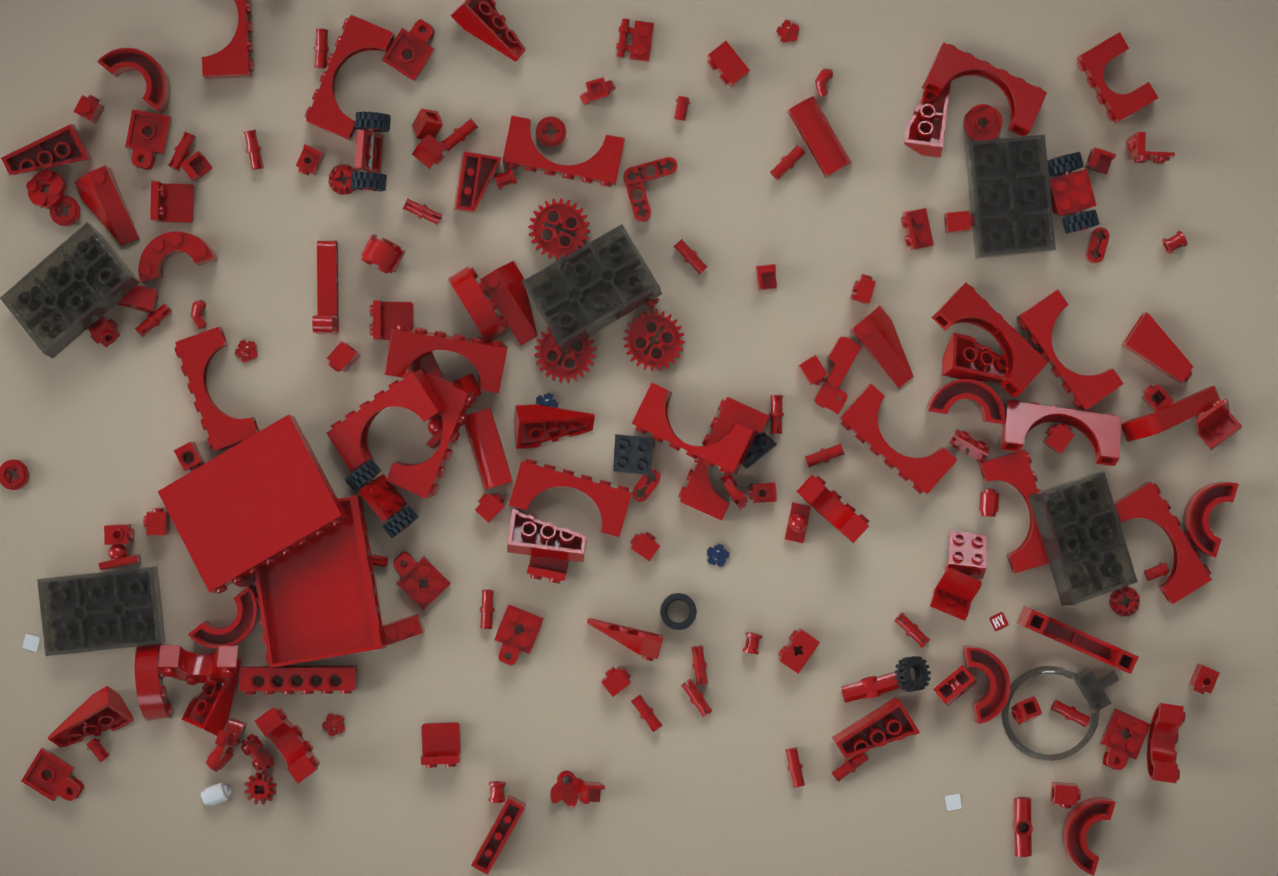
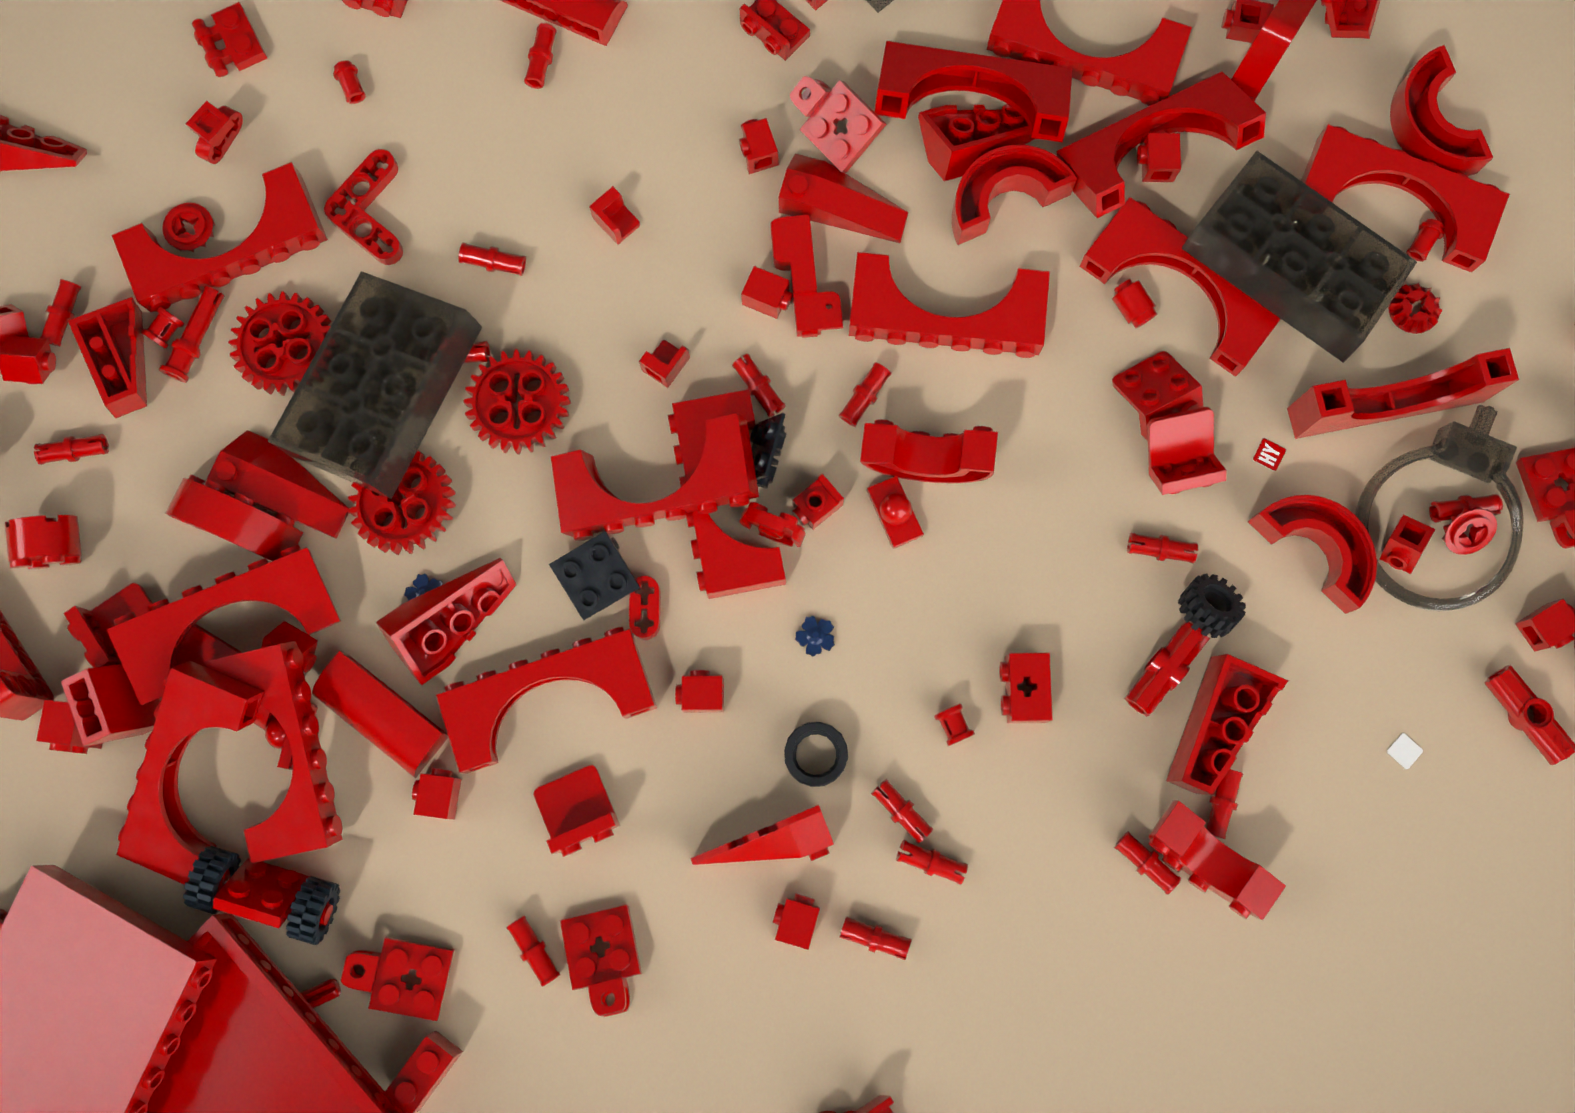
camera: 30 degrees left, 10 degrees down
(369, 362) = (107, 705): none -> red brick
(510, 197) = (187, 347): none -> red pin
(544, 539) = (545, 785): red wedge -> none
(739, 369) = (664, 362): none -> red panel
(823, 788) = (1212, 864): none -> red brick
(911, 295) = (825, 109): none -> plate
(955, 685) = (1283, 579): red brick -> none
(976, 448) = (1037, 249): red hinge -> none
(1068, 729) = (1480, 533): none -> gear

